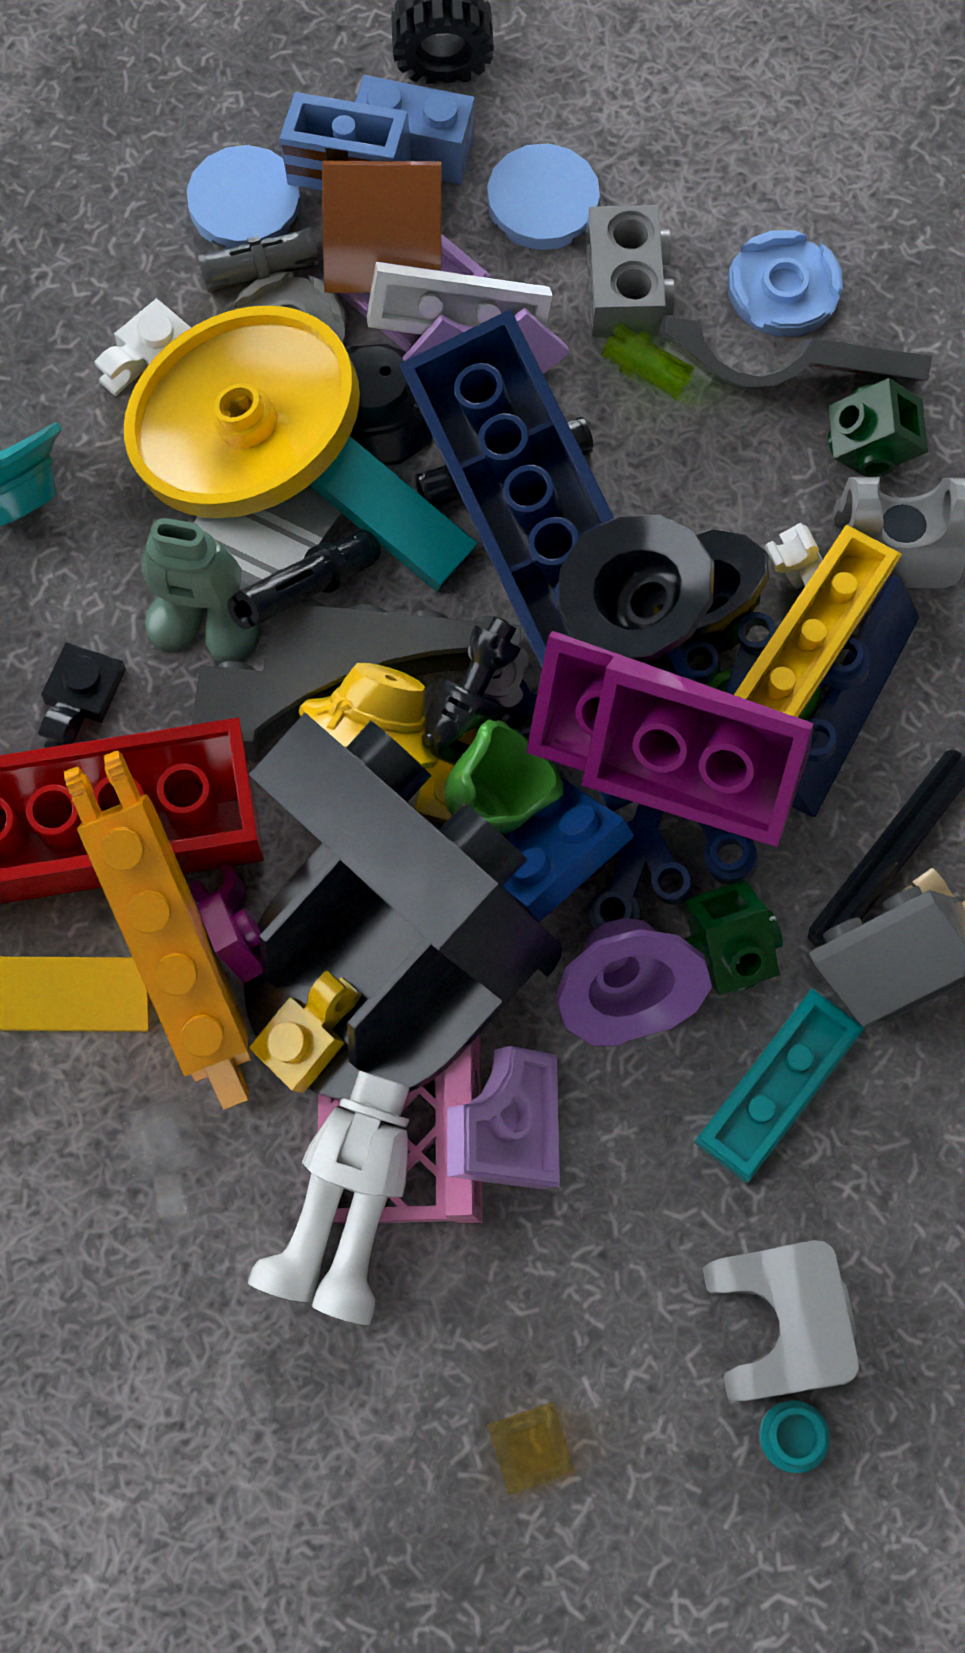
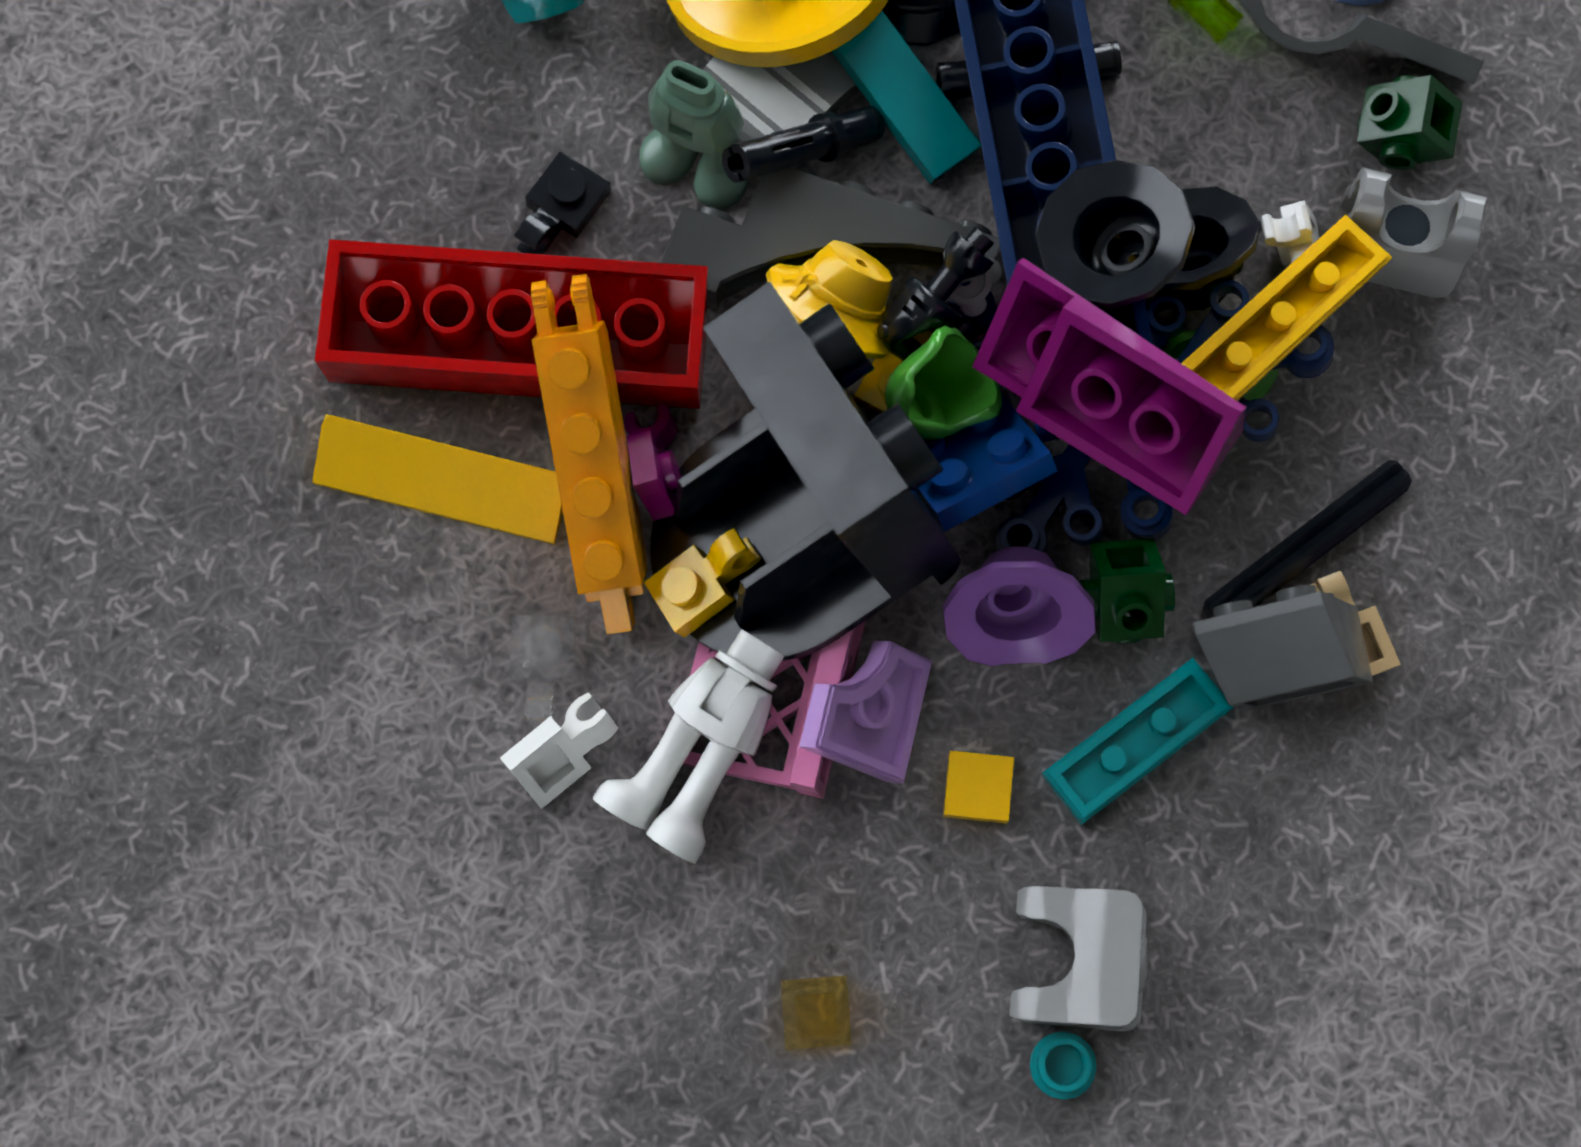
camera: 15 degrees right, 5 degrees up
(198, 1249) = (553, 755): none -> white plate
(635, 1171) = (978, 787): none -> yellow tile
(885, 635) = (1299, 399): dark blue slope -> none

